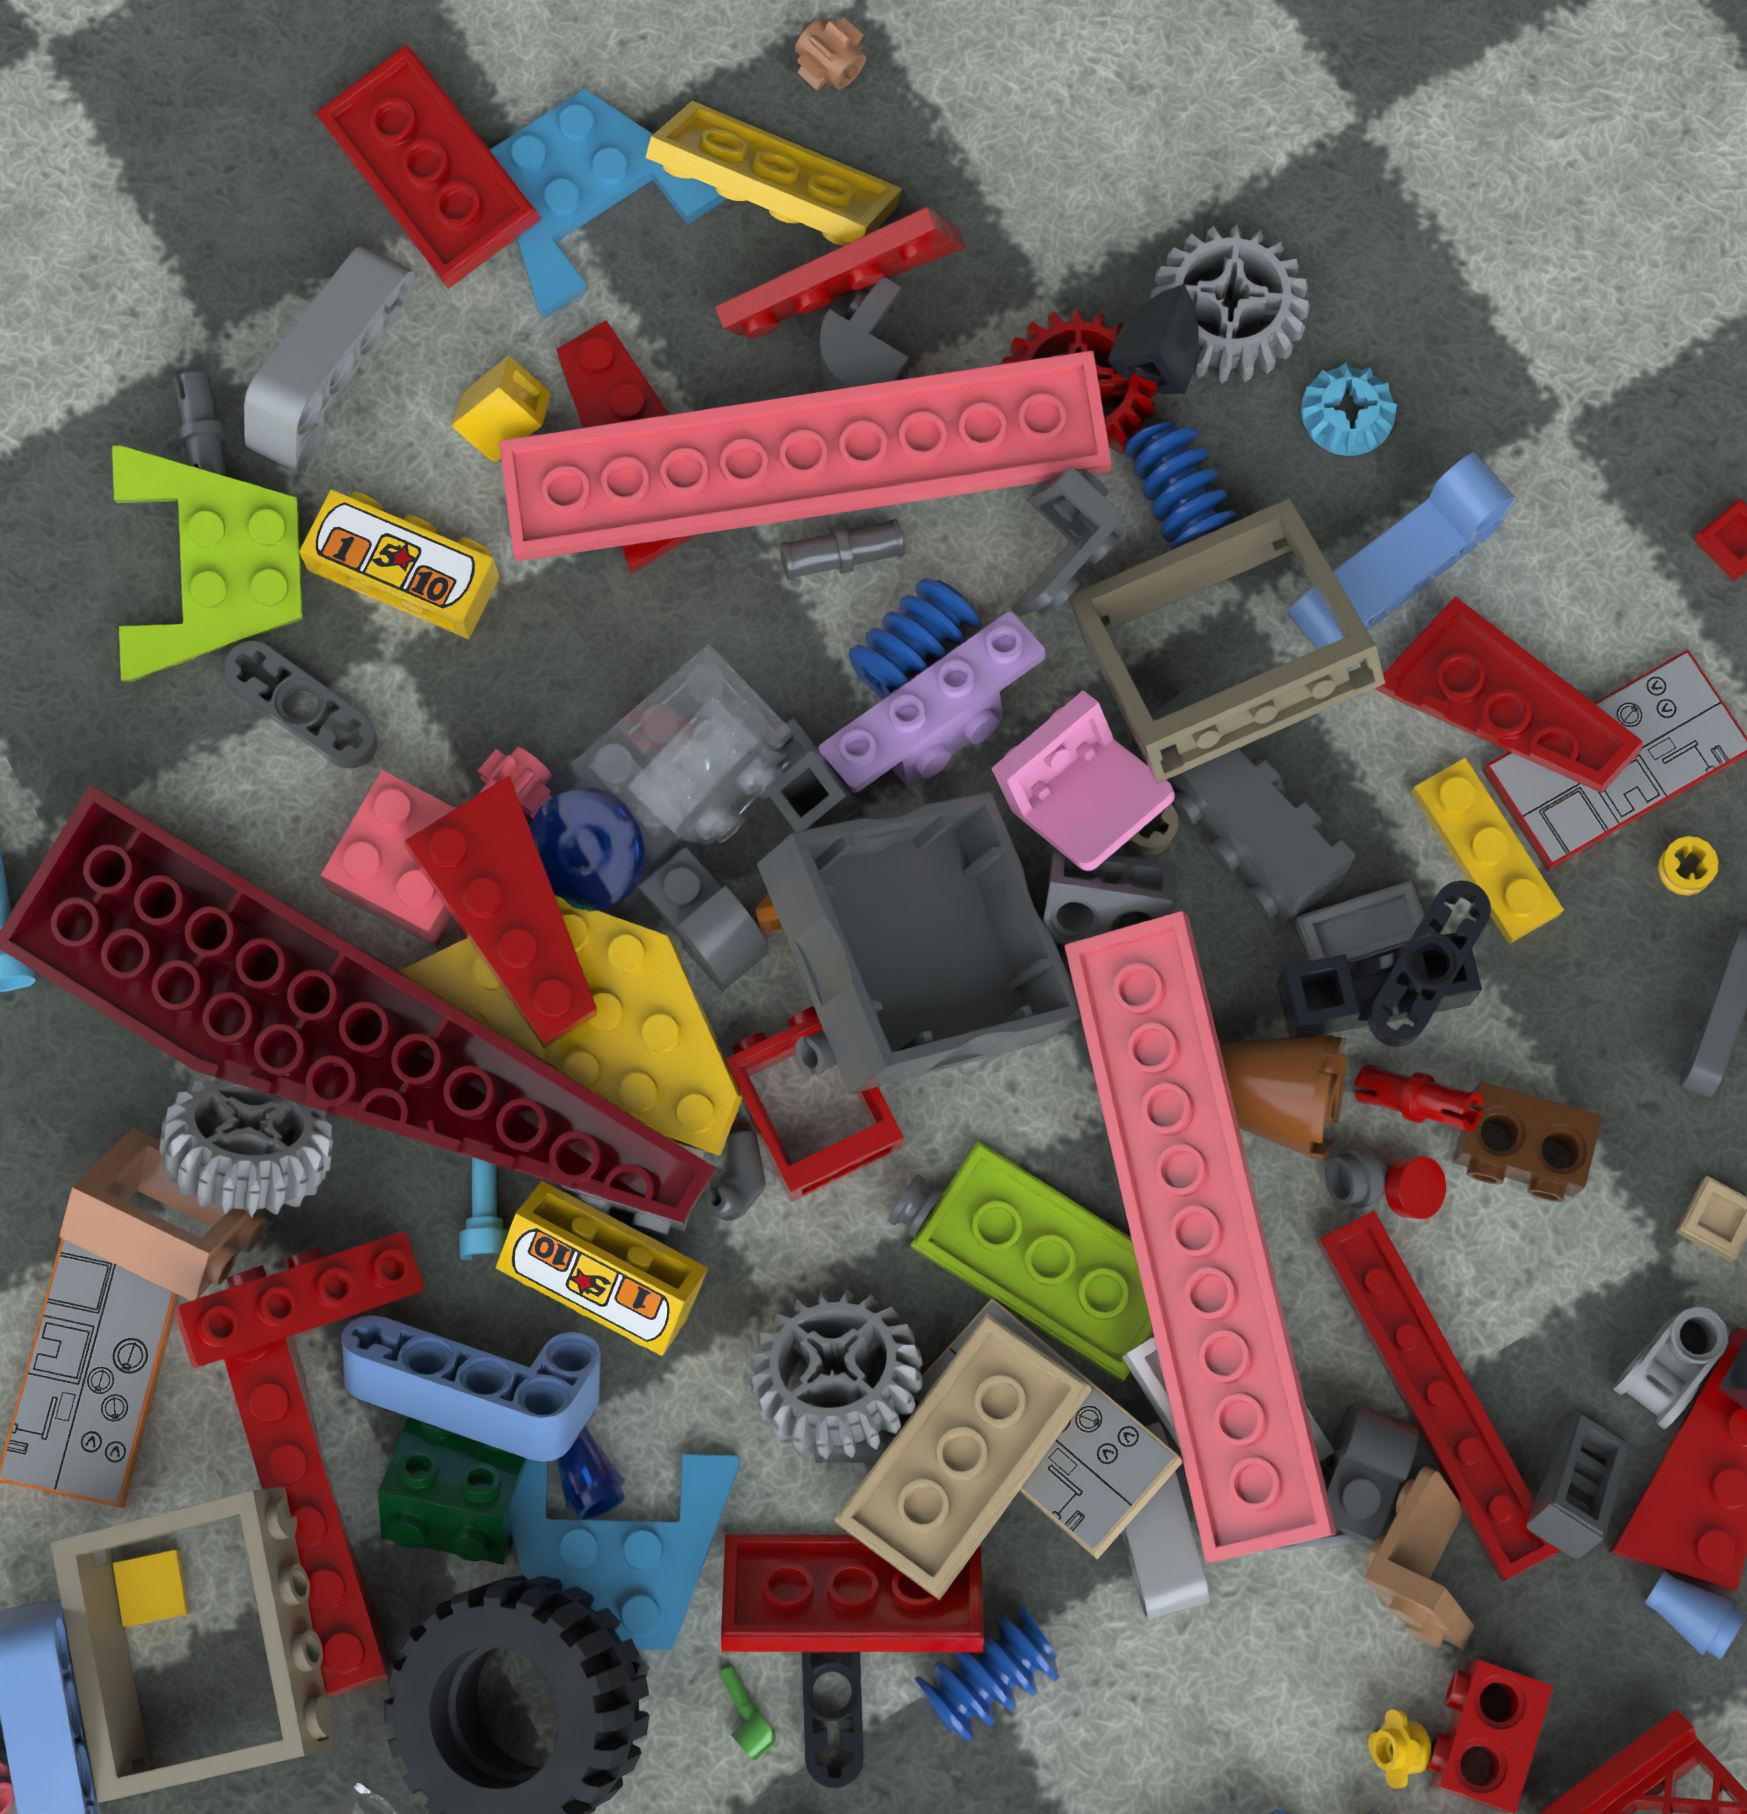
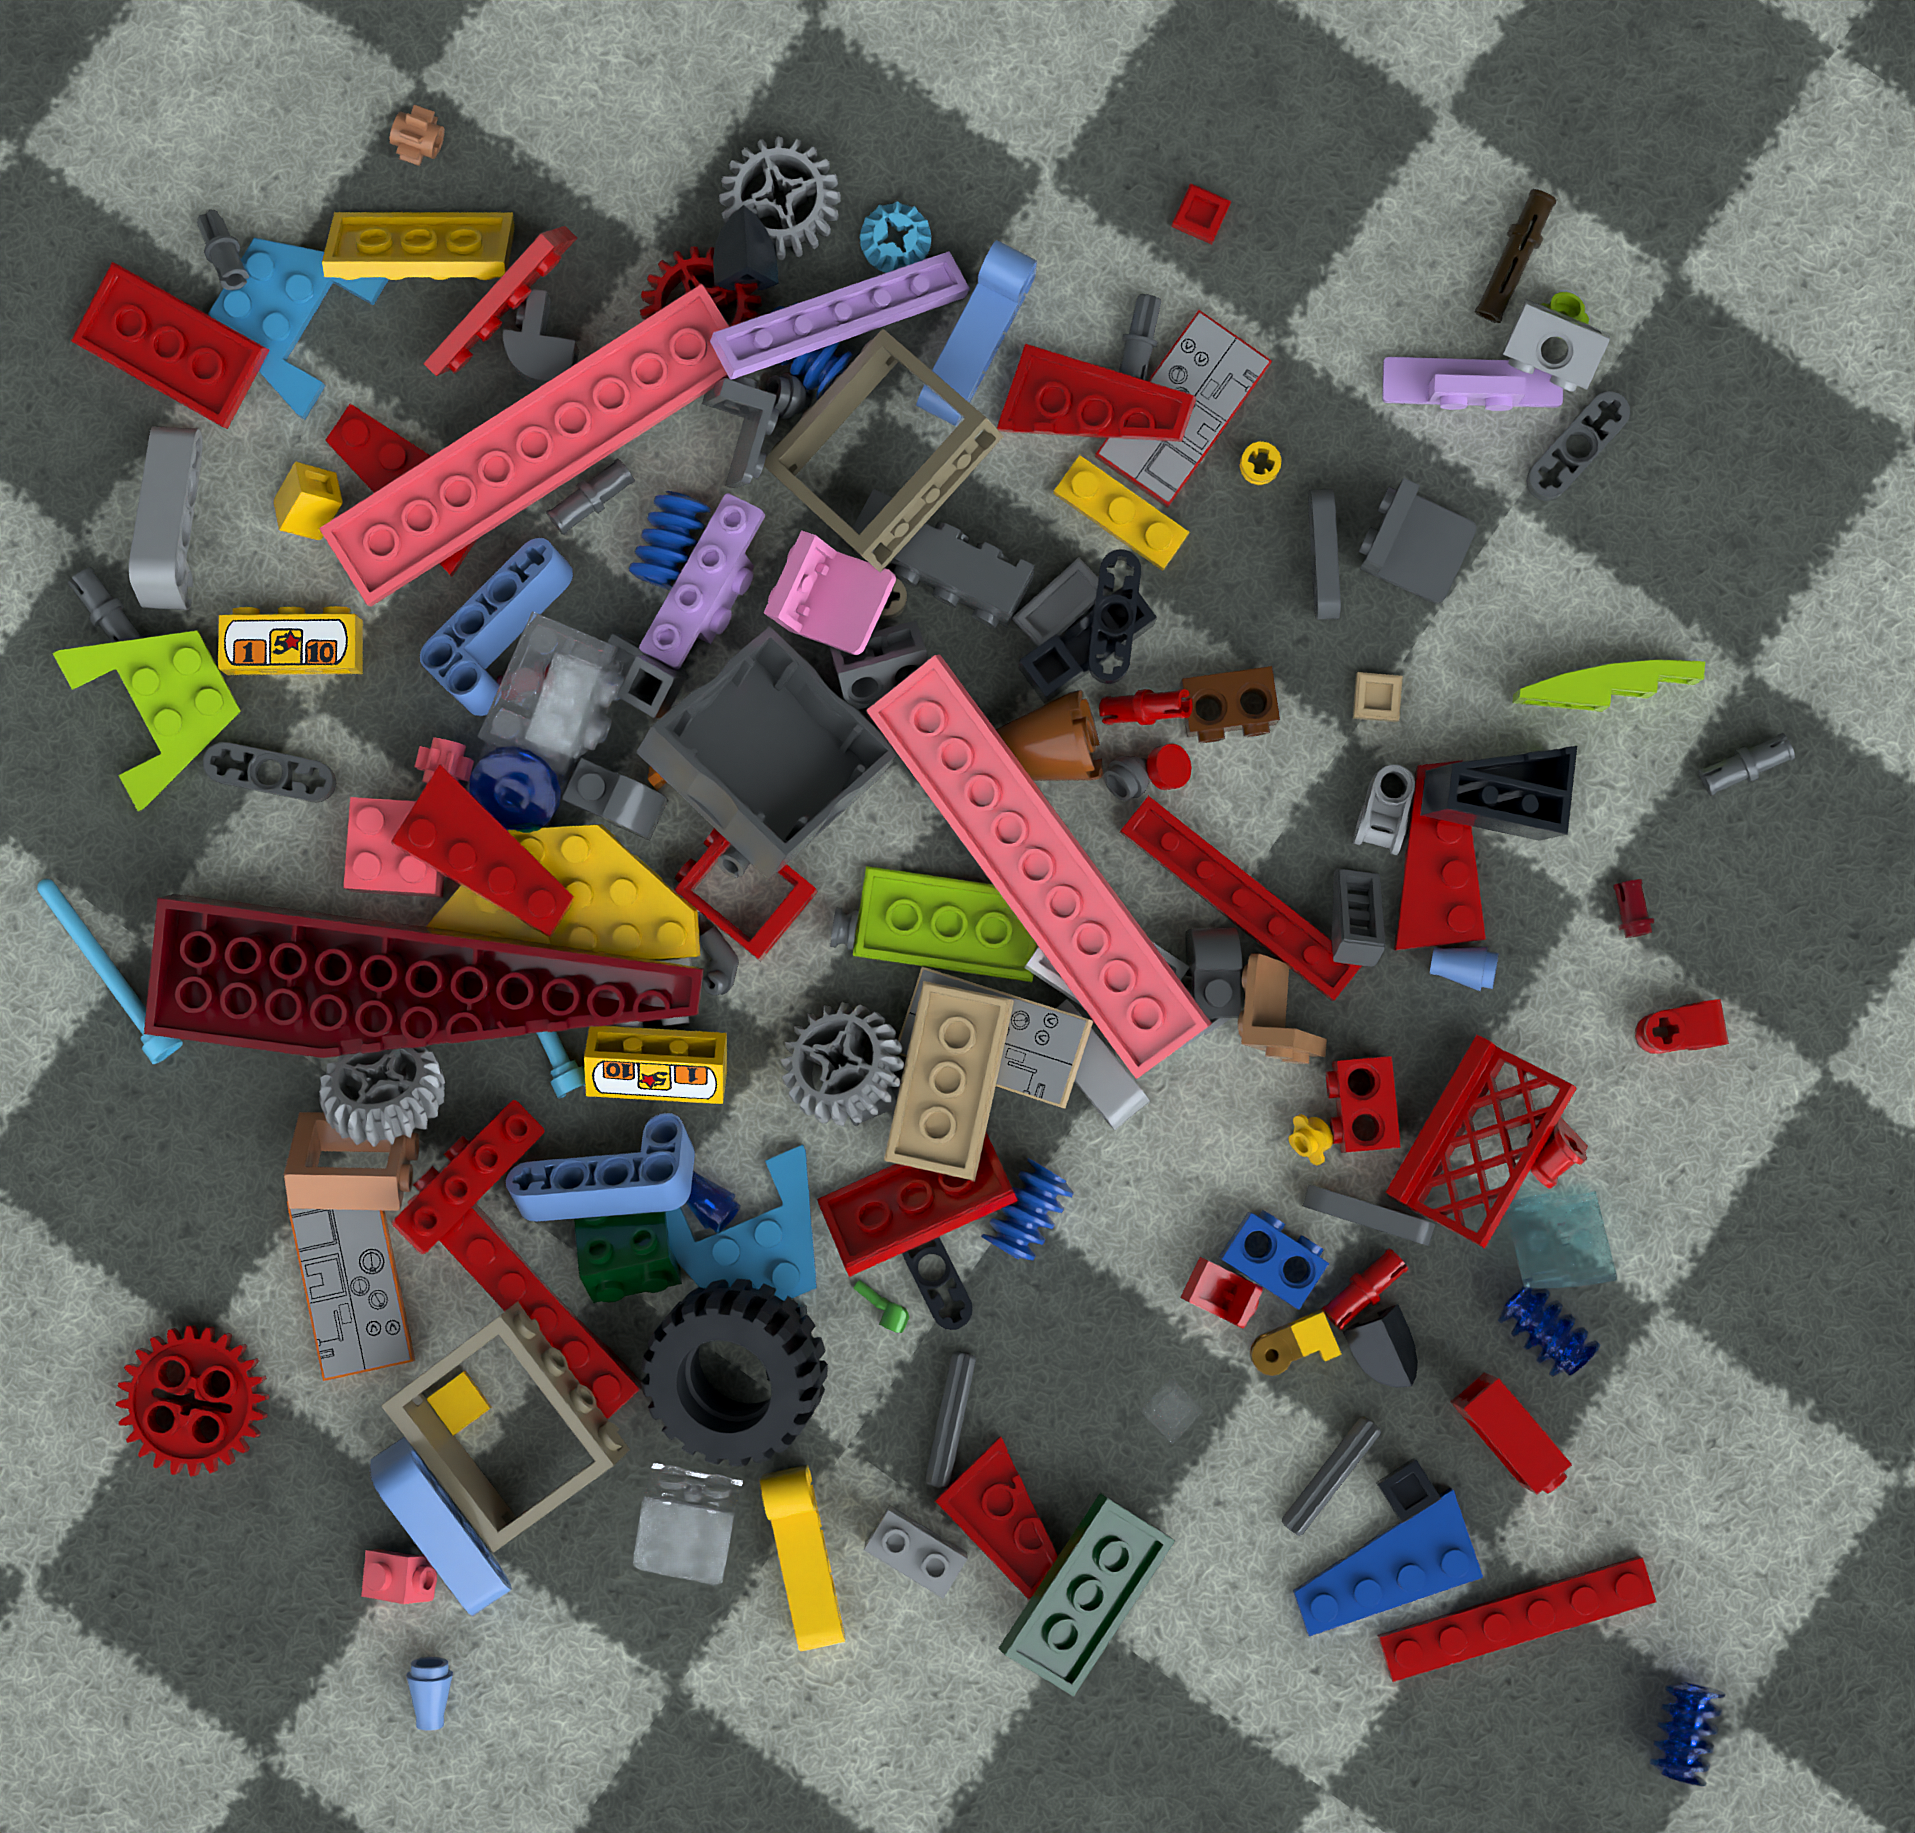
camera: 25 degrees left, 10 degrees up
(540, 86) = (222, 251): none -> dark grey axle
(654, 640) = (493, 621): none -> medium blue beam
(1138, 534) = (790, 393): none -> dark grey plate
(1242, 460) = (839, 315): none -> lavender plate
(1600, 652) = (1140, 337): none -> dark grey axle

